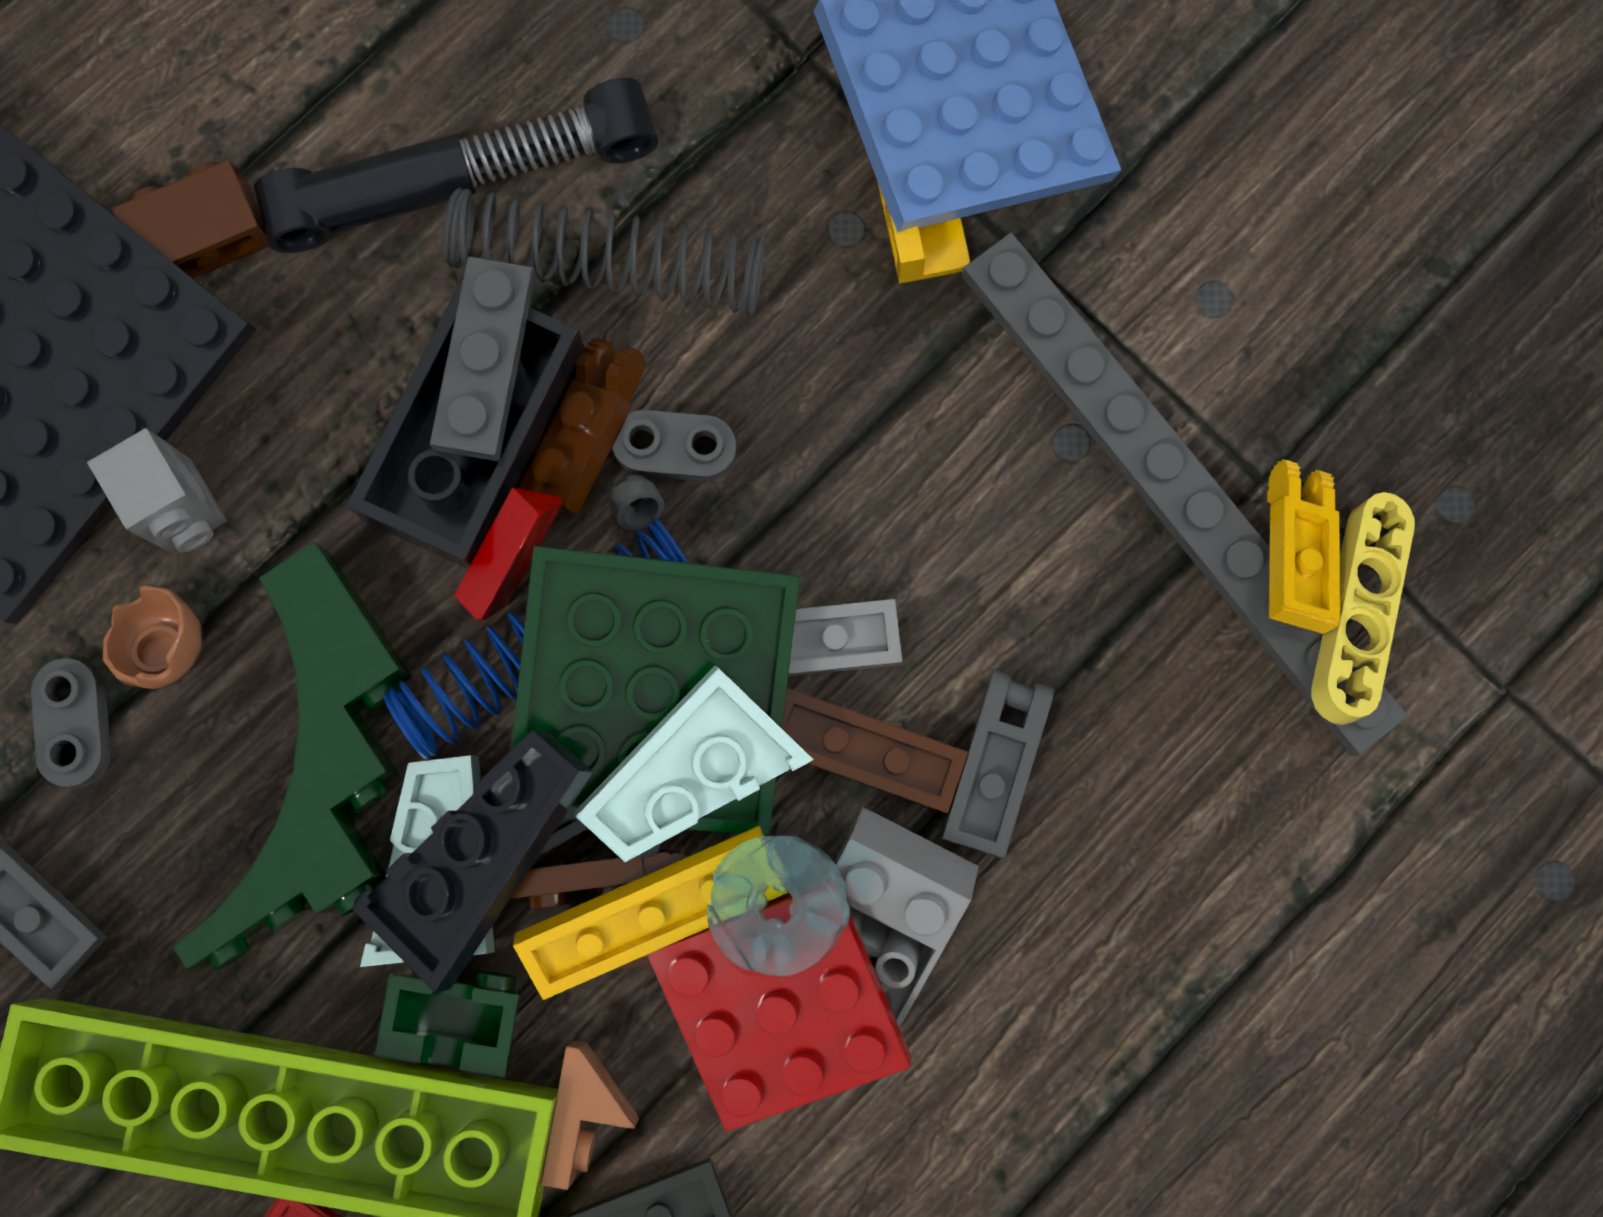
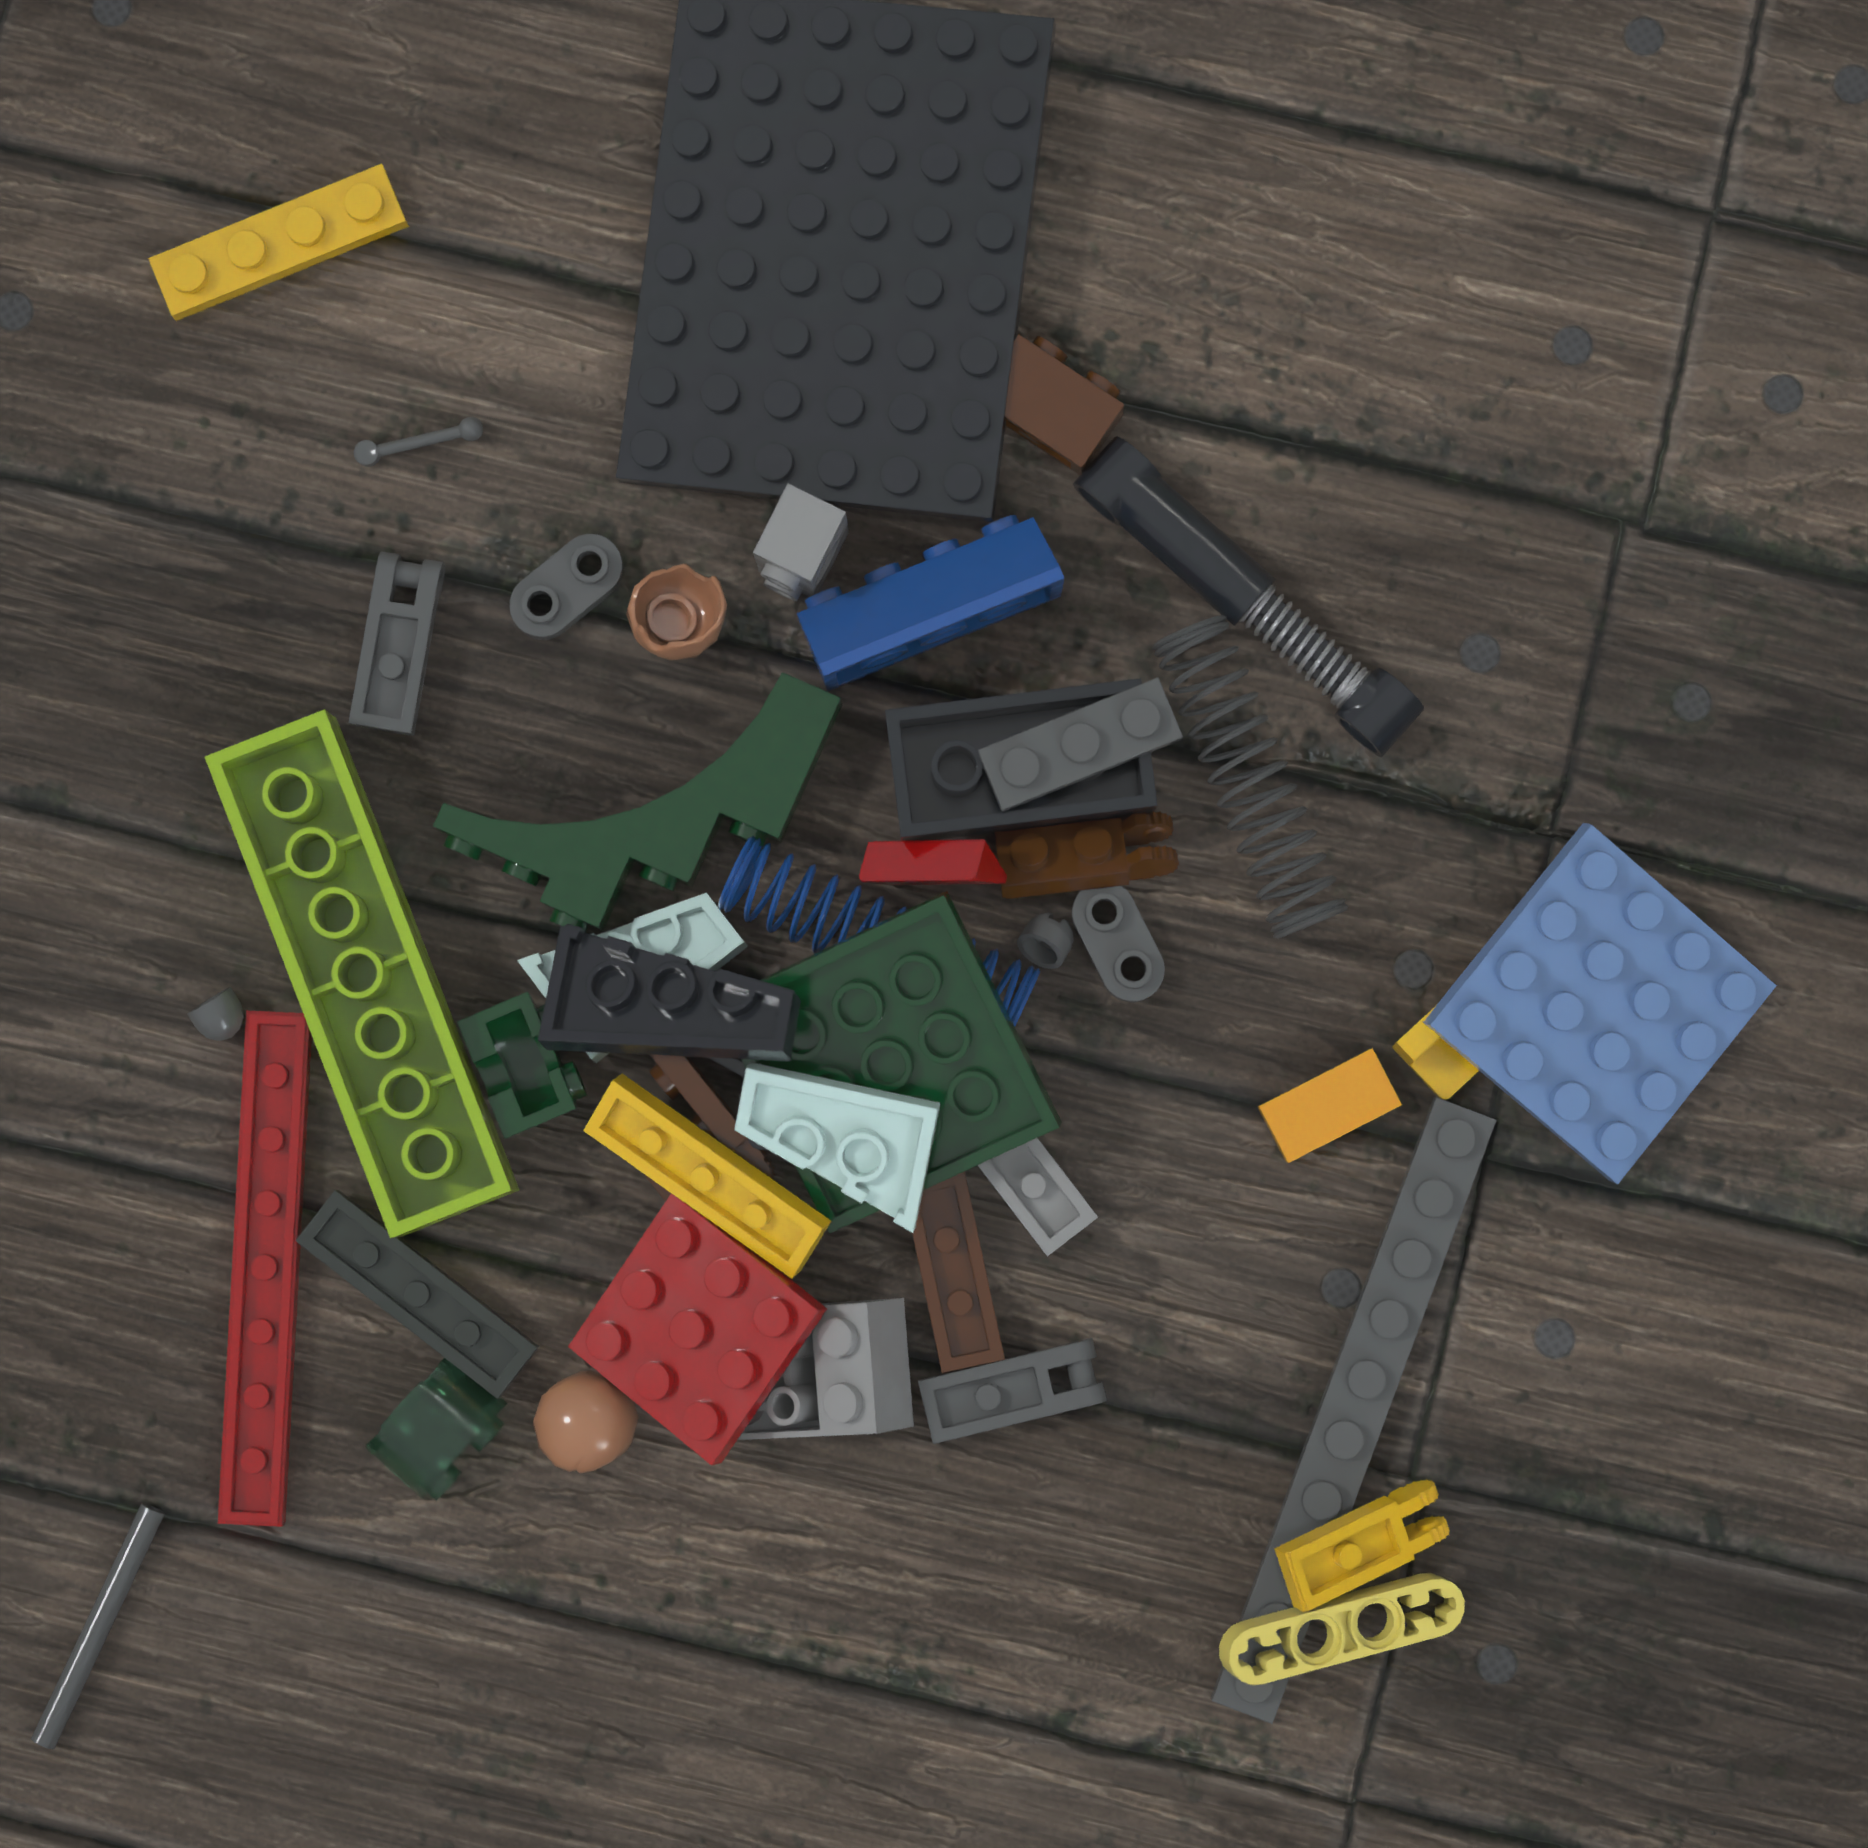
camera: 70 degrees right, 5 degrees up
(288, 418) = (930, 602): none -> blue slope
(583, 1095) = (527, 1211): nougat slope -> none
(738, 897) = (791, 1310): clear light blue plate -> none
(801, 1158) = (584, 1422): none -> nougat hair
(917, 358) = (1329, 1105): none -> light orange tile

